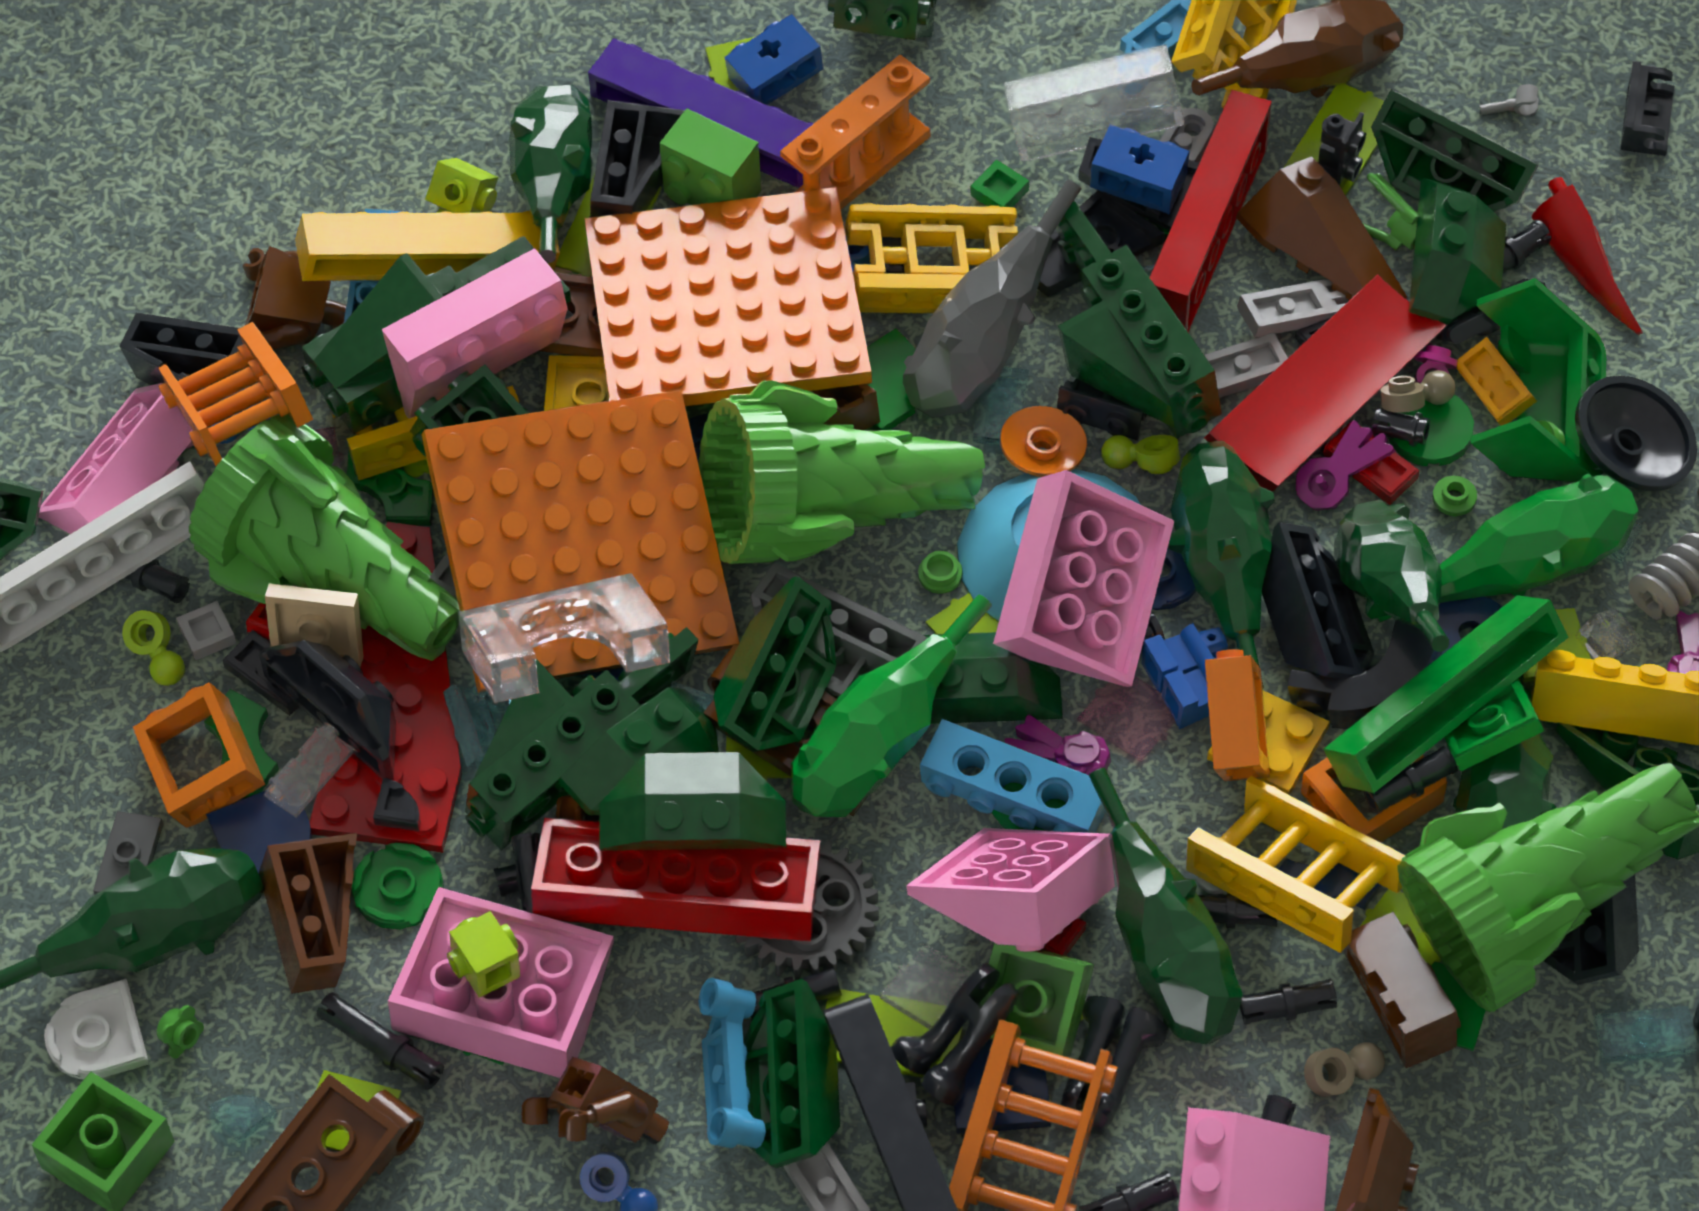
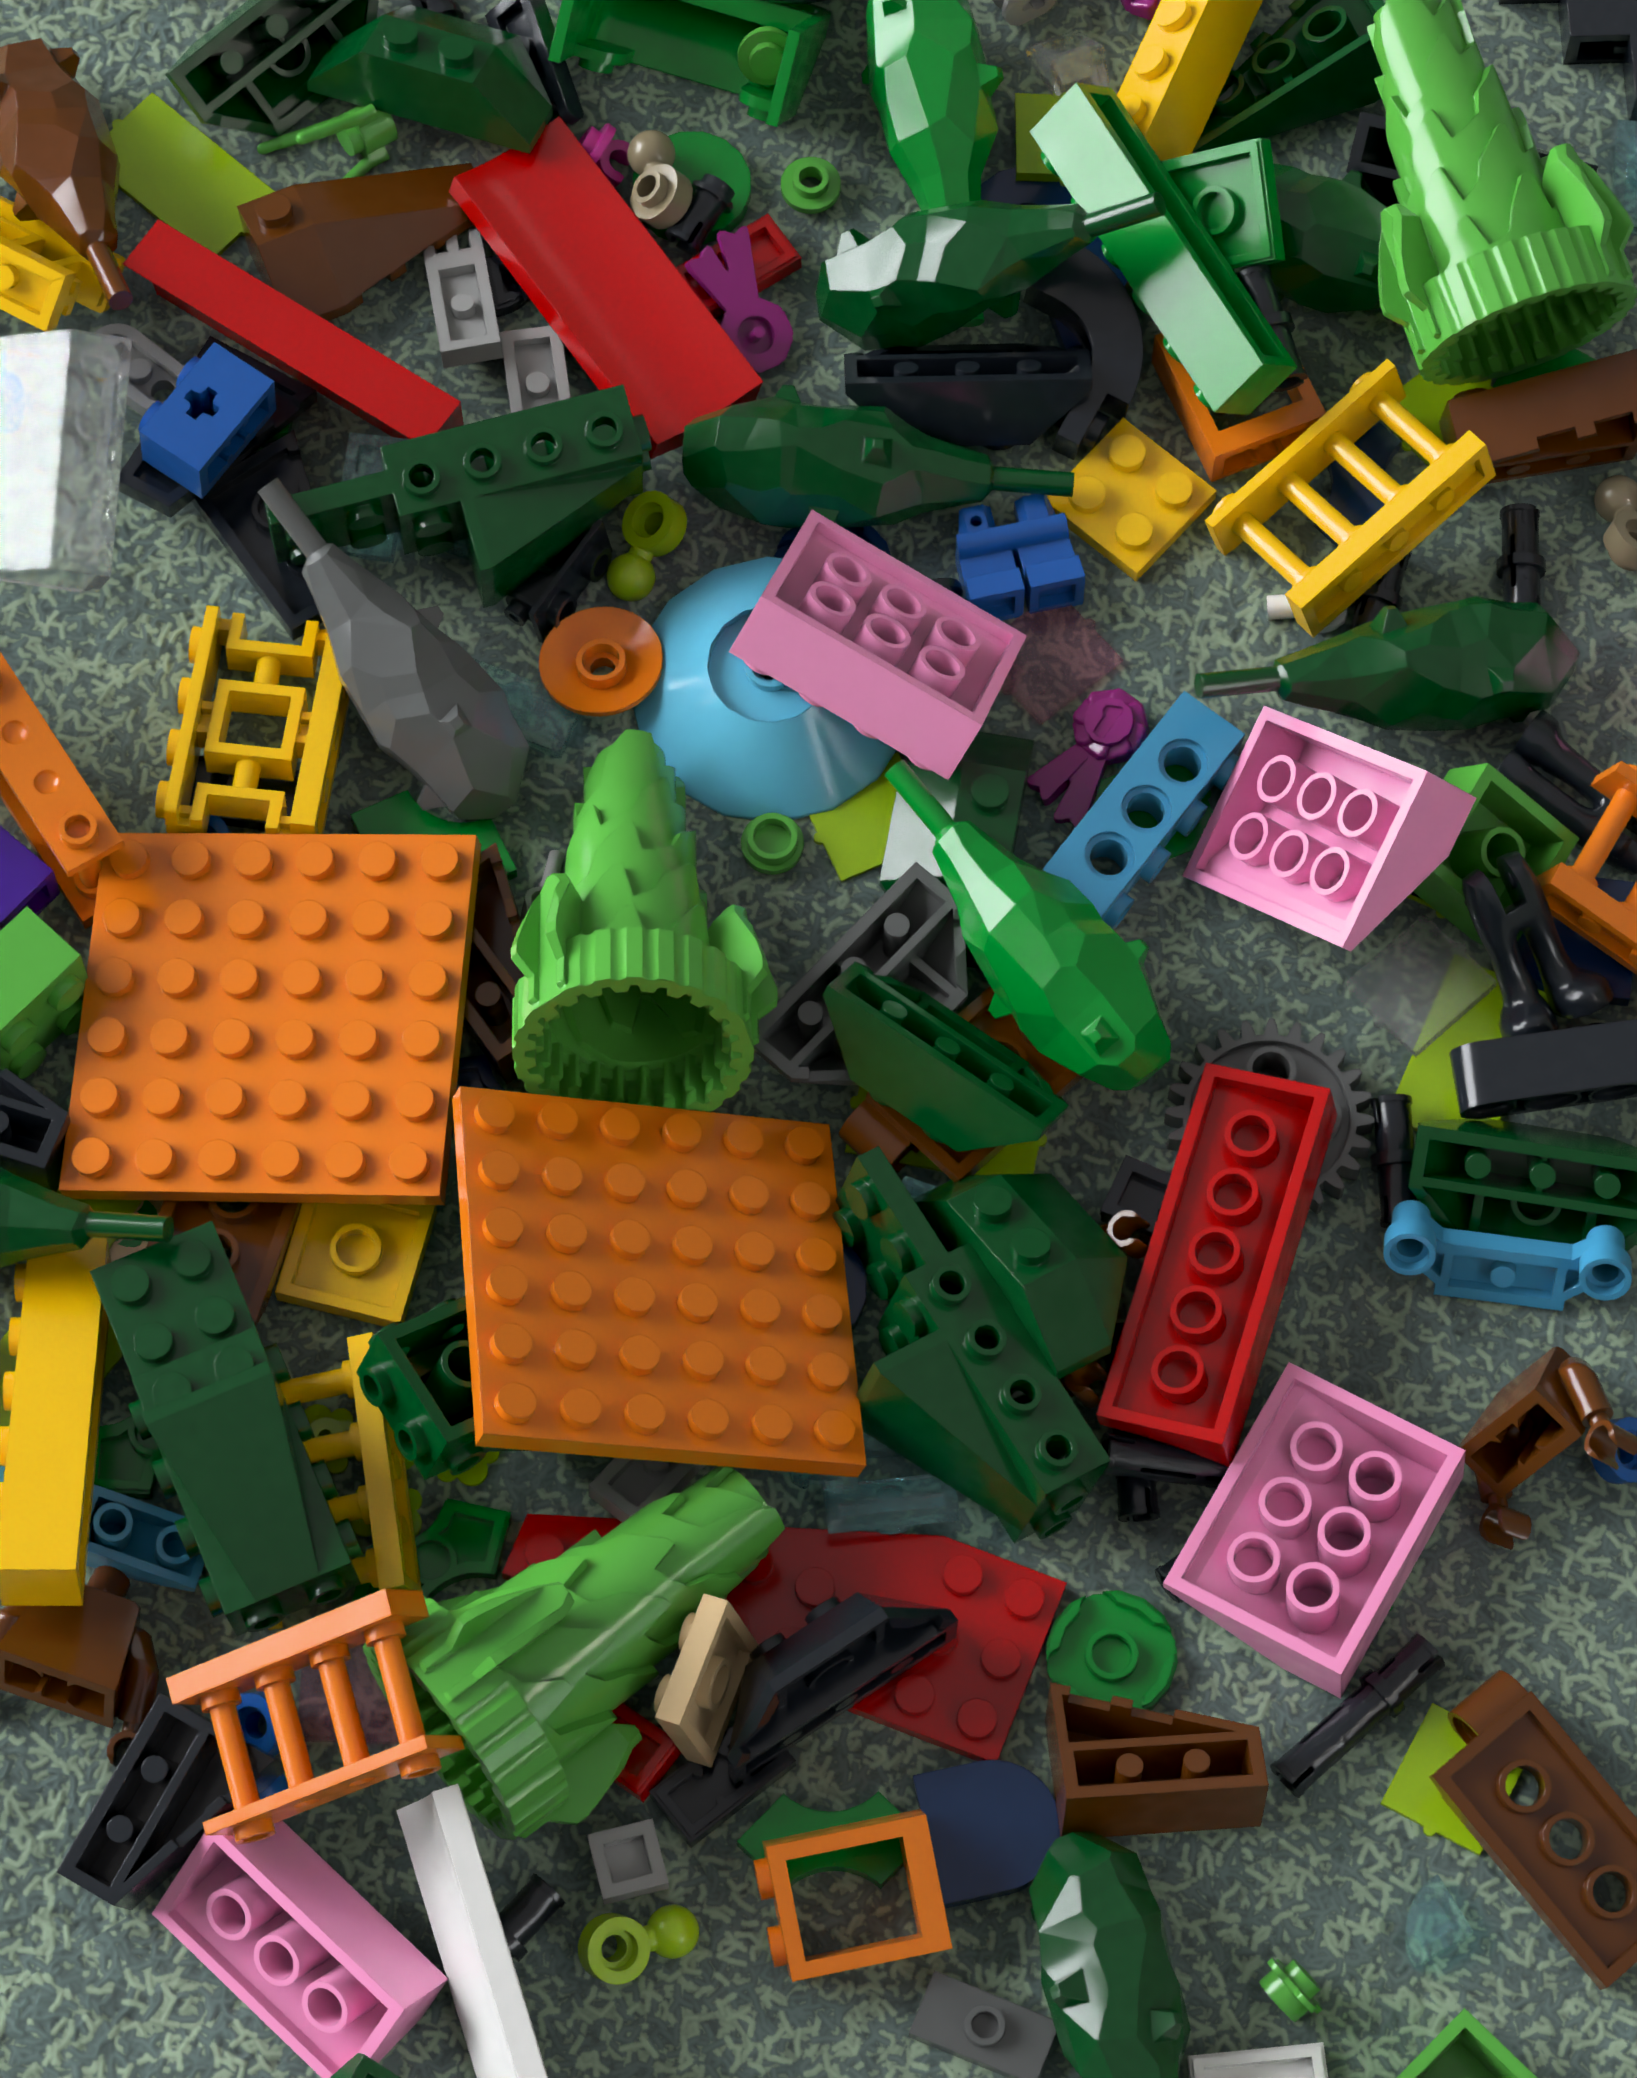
camera: 80 degrees left, 10 degrees up
(309, 771) = (919, 1740): clear hinge -> none
(396, 807) = (1004, 1627): black tile -> none
(479, 324) = (309, 1337): bright pink slope -> none
(484, 953) = (1305, 1526): lime brick -> none
(611, 611) = (804, 1258): clear arch -> none
(692, 805) = (1150, 1209): dark green wedge -> none
(999, 186) = (145, 626): green plate -> none
(1237, 716) = (1143, 502): orange window -> none
(1341, 146) = (239, 163): black hinge -> none
(1494, 382) = (649, 89): light orange plate -> none

